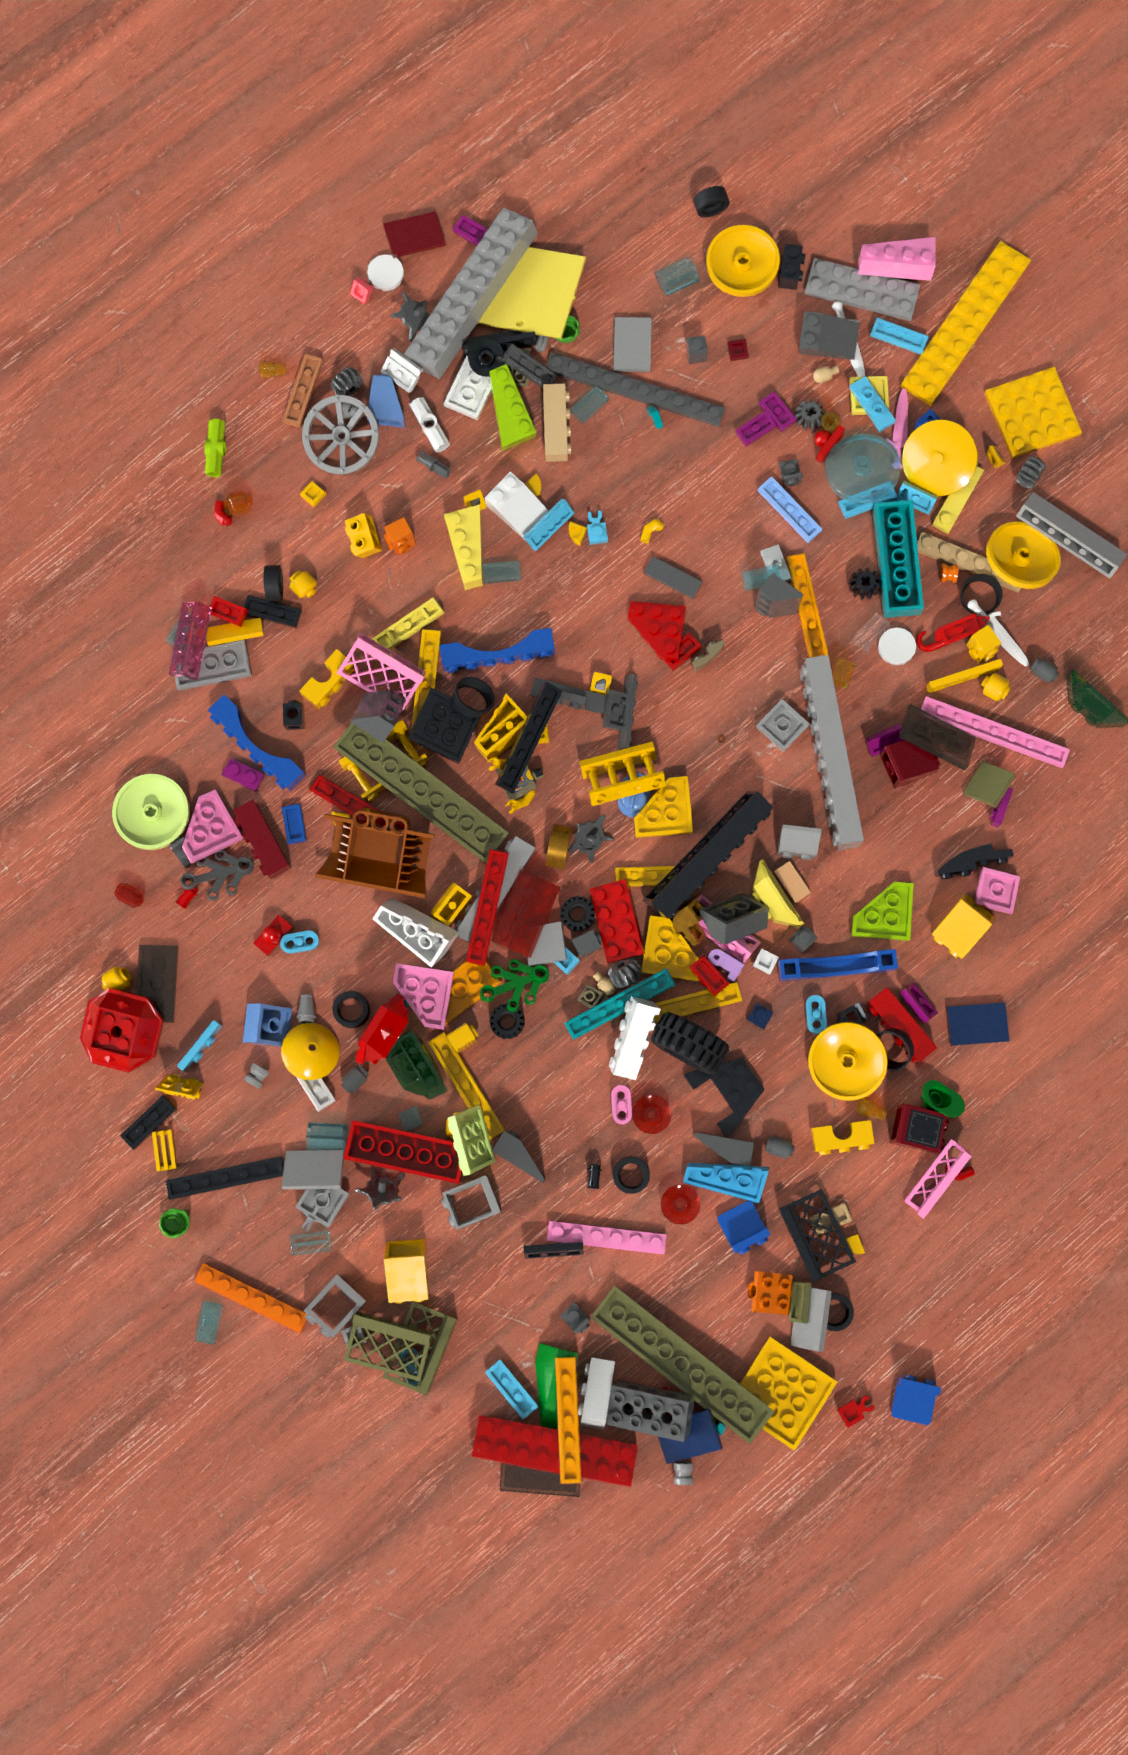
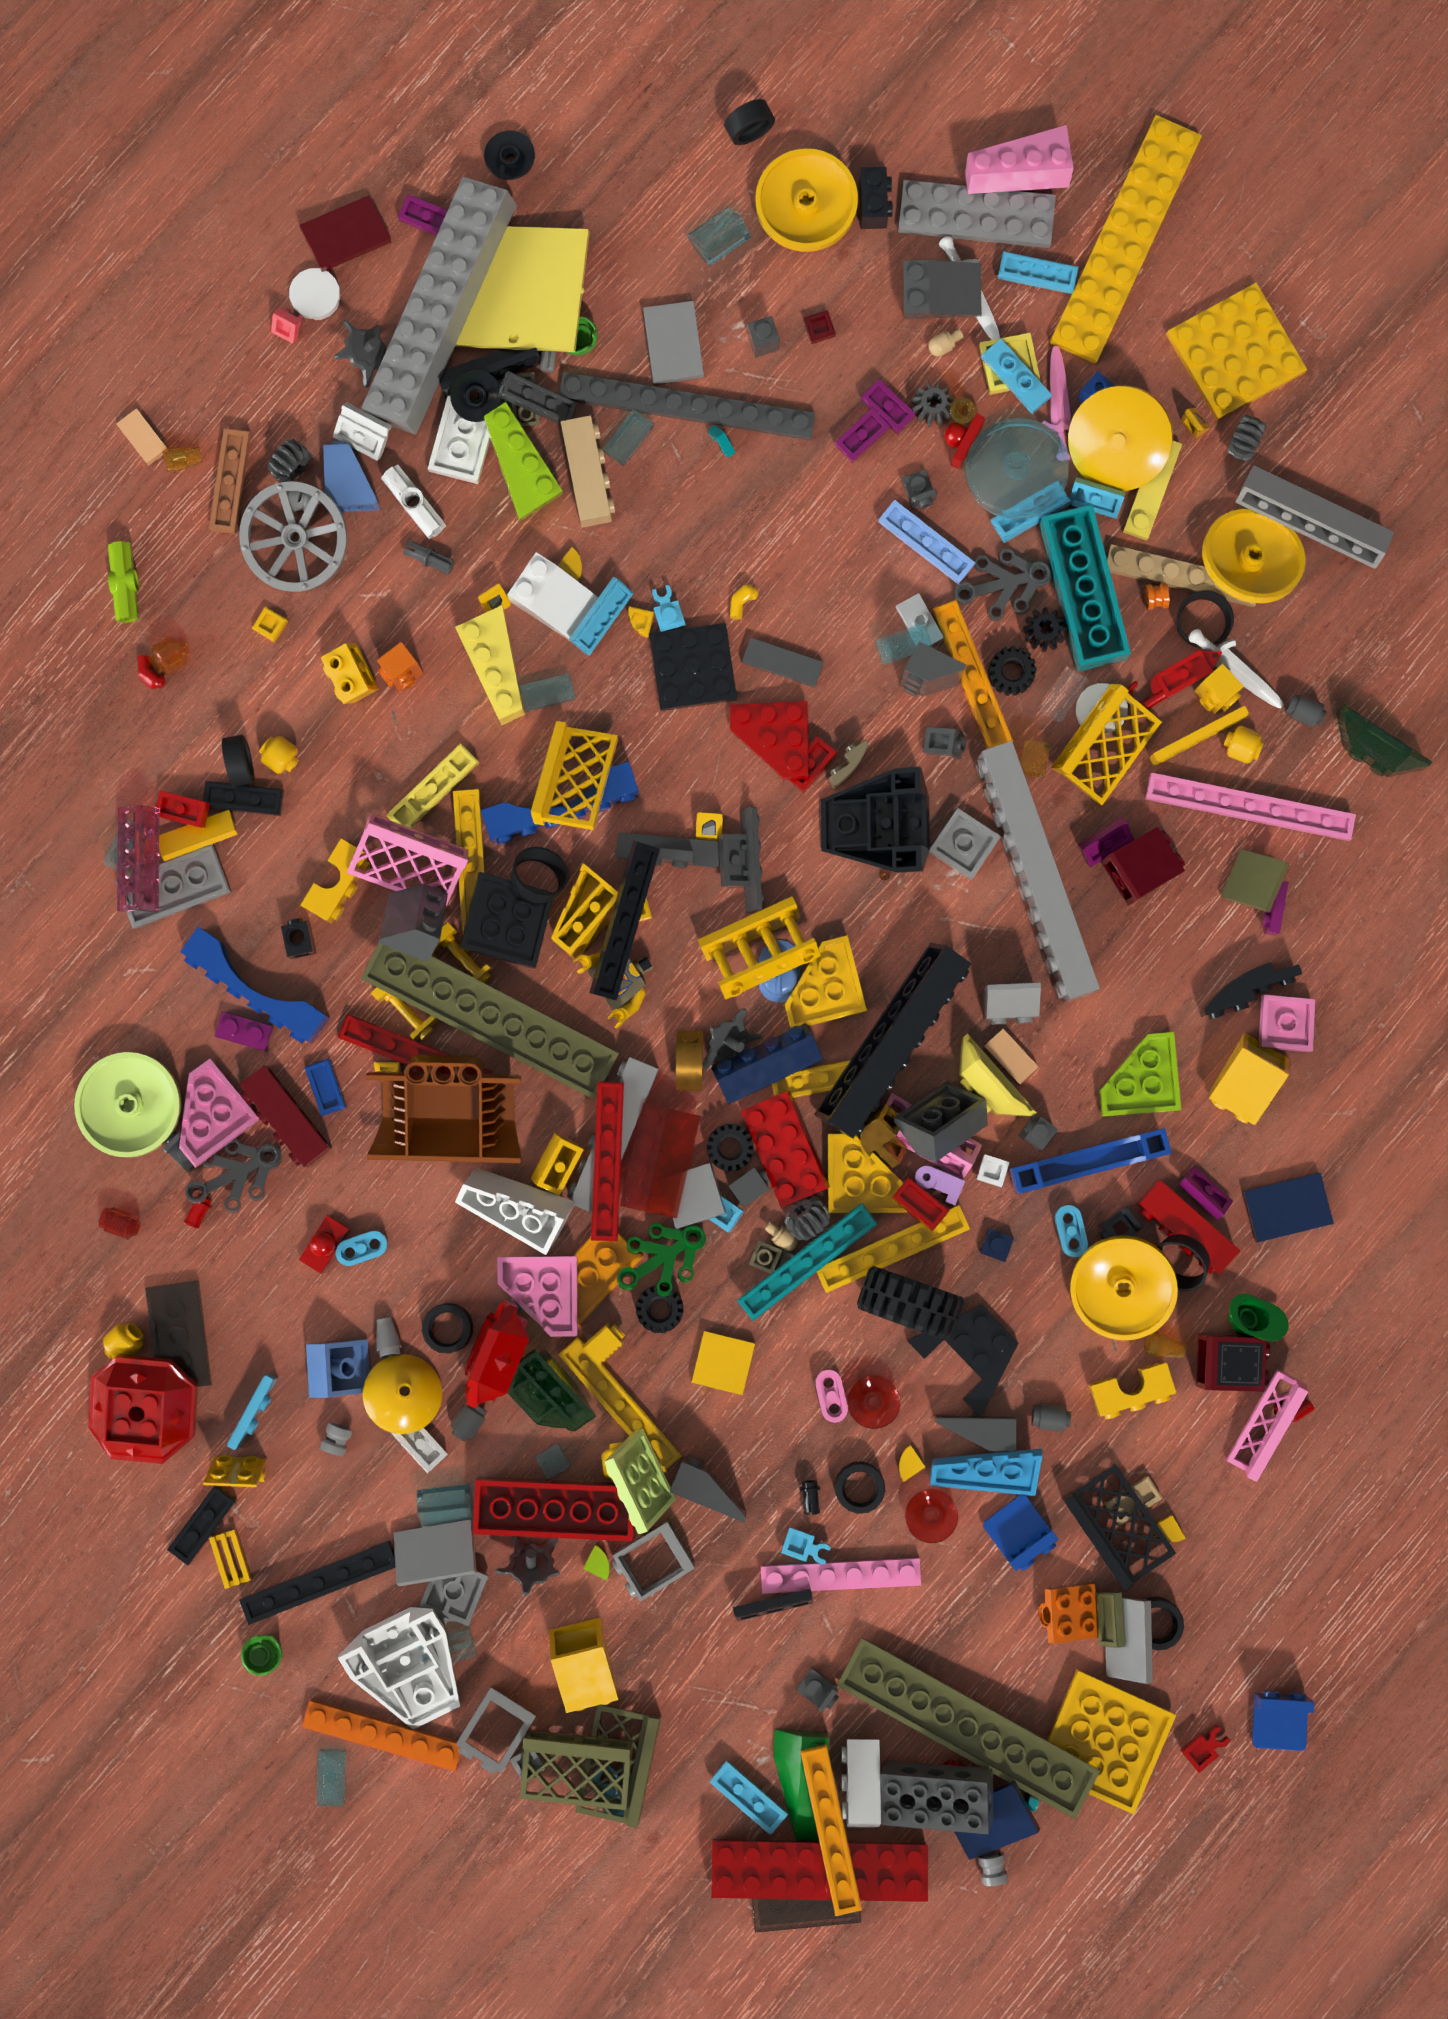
camera: 10 degrees left, 5 degrees up
(246, 351) = (142, 437): none -> light nougat tile
(268, 1249) = (391, 1669): none -> white wedge
(430, 1198) = (598, 1563): none -> lime tile
(494, 630) = (552, 771): none -> yellow fence
(538, 192) = (507, 145): none -> black dish
(546, 1068) = (723, 1362): none -> yellow tile
(581, 1209) = (800, 1545): none -> medium azure plate
(608, 570) = (693, 667): none -> black plate
(614, 857) = (767, 1063): none -> dark blue brick
(633, 1037) = (833, 1304): white wedge -> none
(670, 1164) = (909, 1463): none -> yellow tile
(724, 699) = (880, 821): none -> black wedge
(780, 651) = (944, 742): none -> dark grey bracket
(839, 598) = (1012, 655): none -> black tyre
(842, 547) = (1006, 582): none -> dark grey plant
(888, 657) = (1092, 728): none -> yellow fence
(937, 737) = (1176, 827): clear smoke tile -> none

